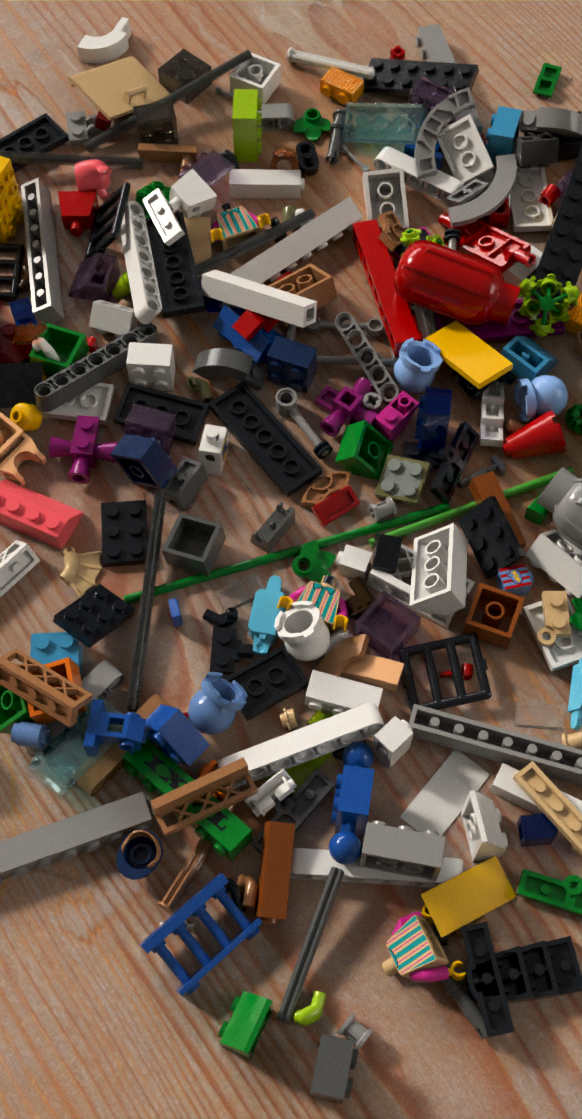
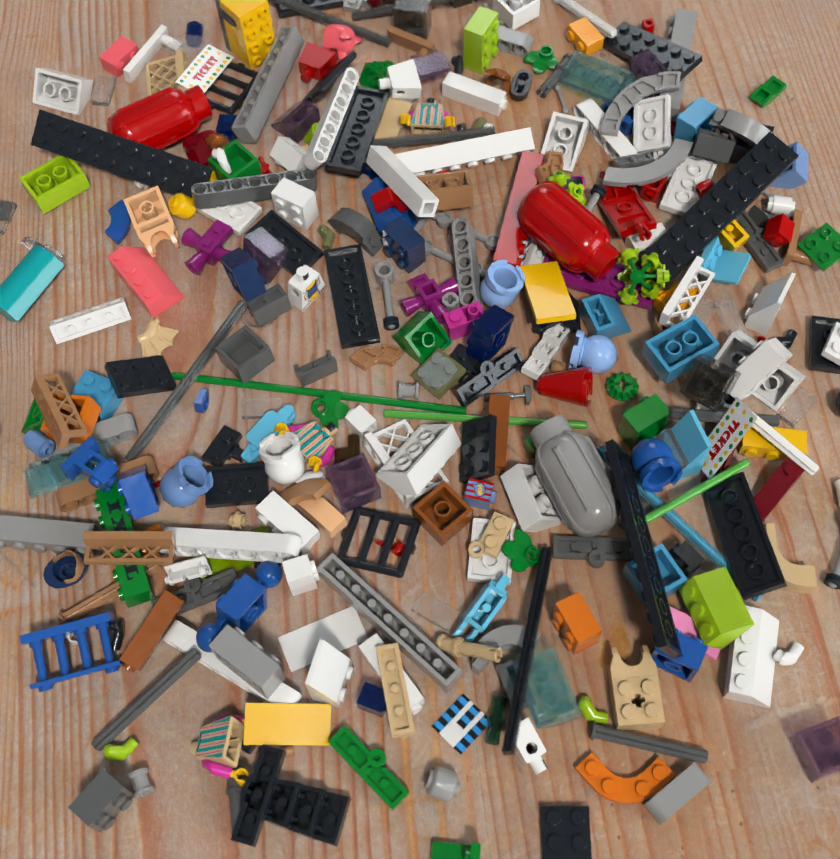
camera: 30 degrees right, 0 degrees up
(124, 533) = (202, 323): black plate -> none
(163, 217) = (368, 89): white plate -> none
(223, 619) = (234, 422): black arm -> none
(246, 1024) = (64, 736): green slope -> none
(251, 890) = (130, 629): medium nougat arm -> none
(335, 505) = (374, 371): red tile -> none
(386, 552) = (386, 424): black slope -> none

